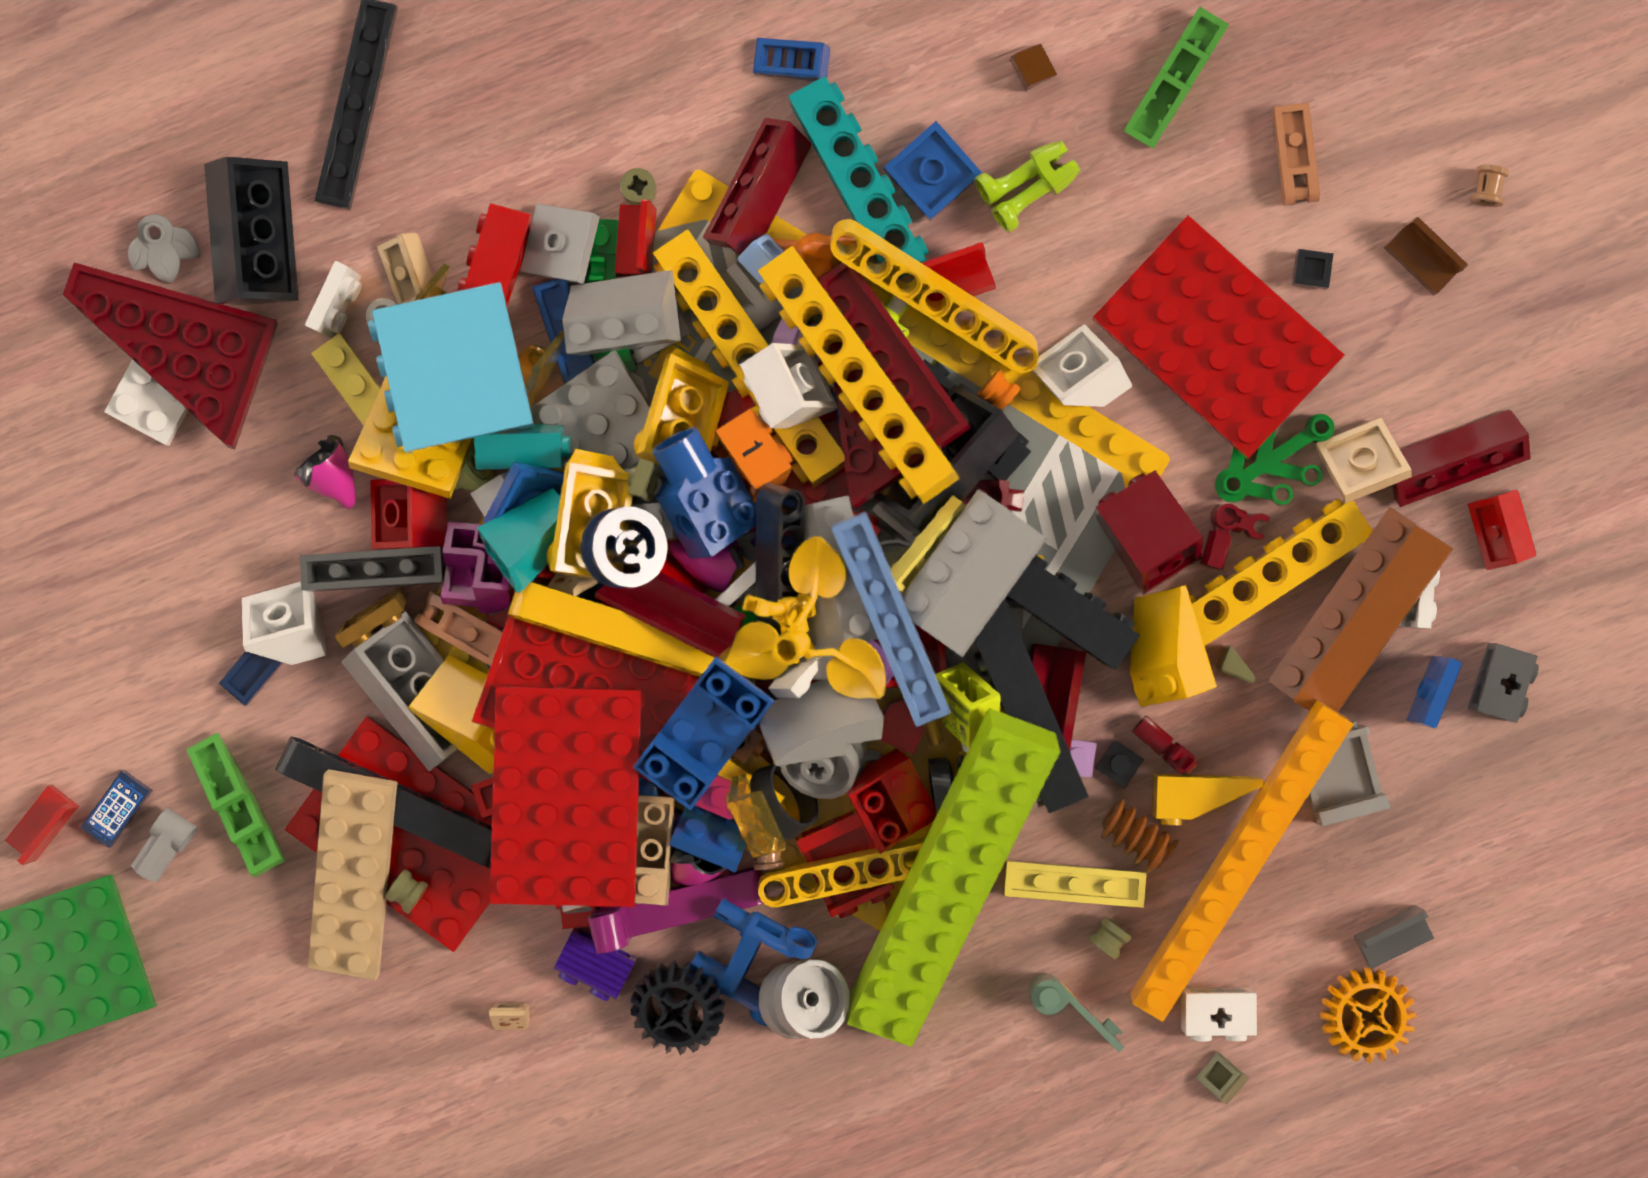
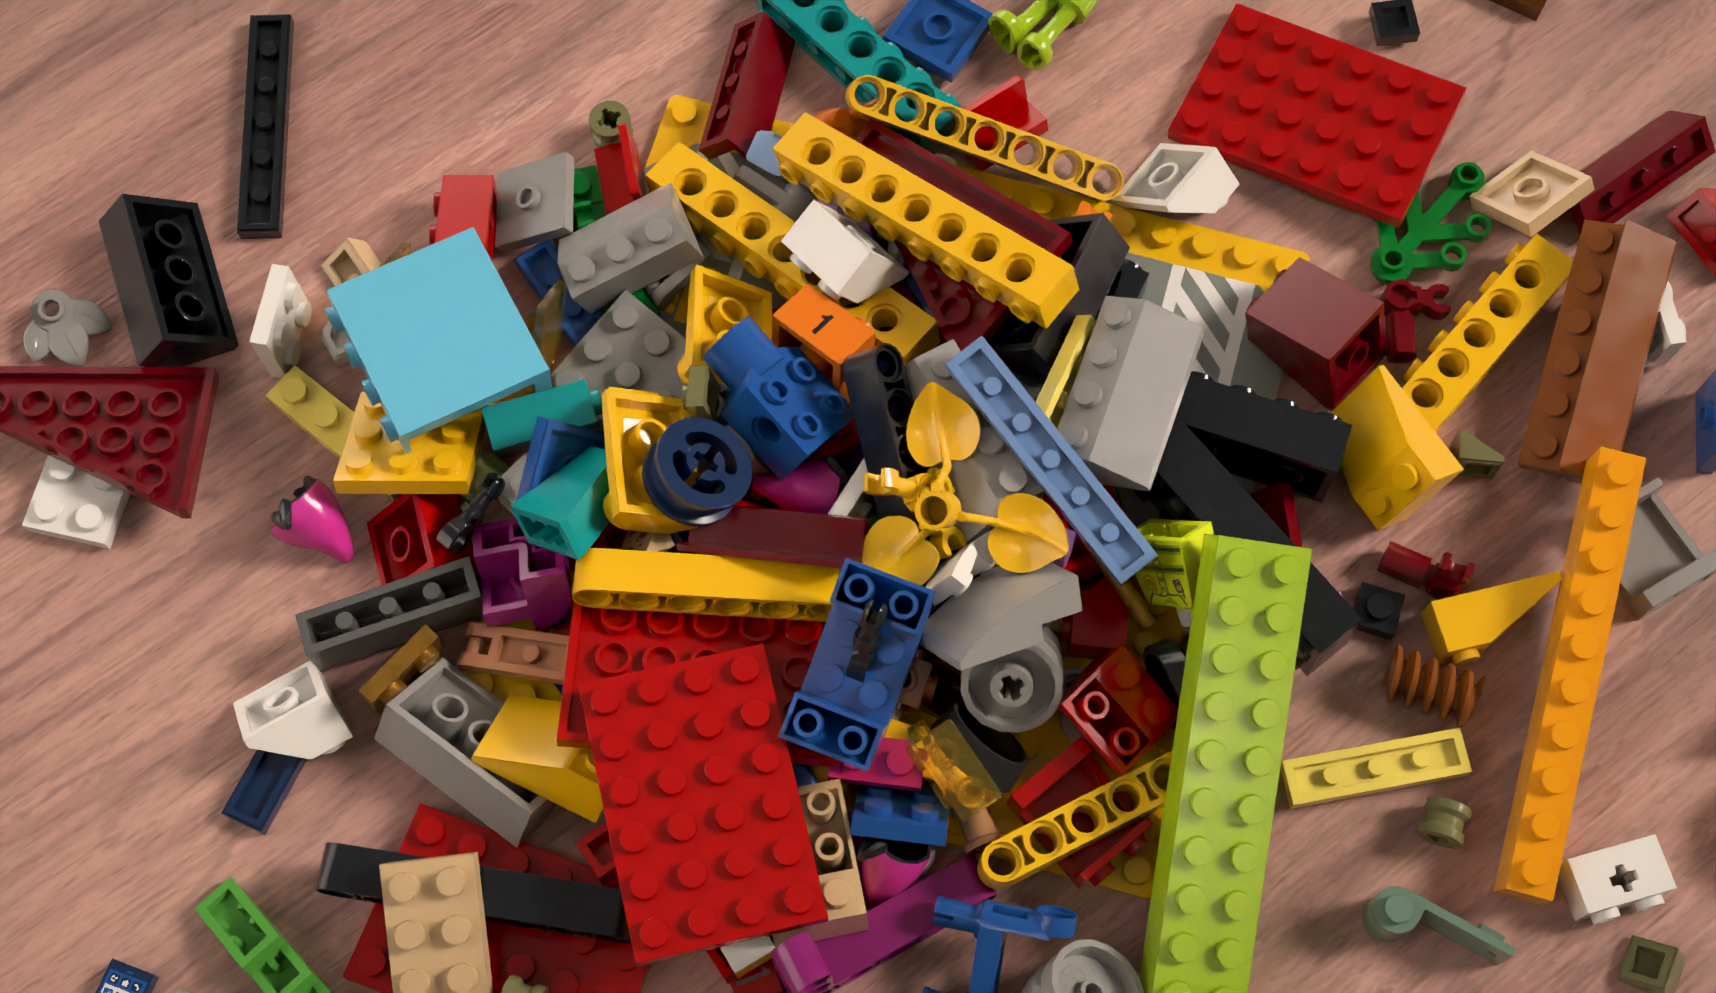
camera: 15 degrees left, 20 degrees down
(449, 513) = (459, 530): none -> black piece
(714, 721) = (866, 640): none -> black piece

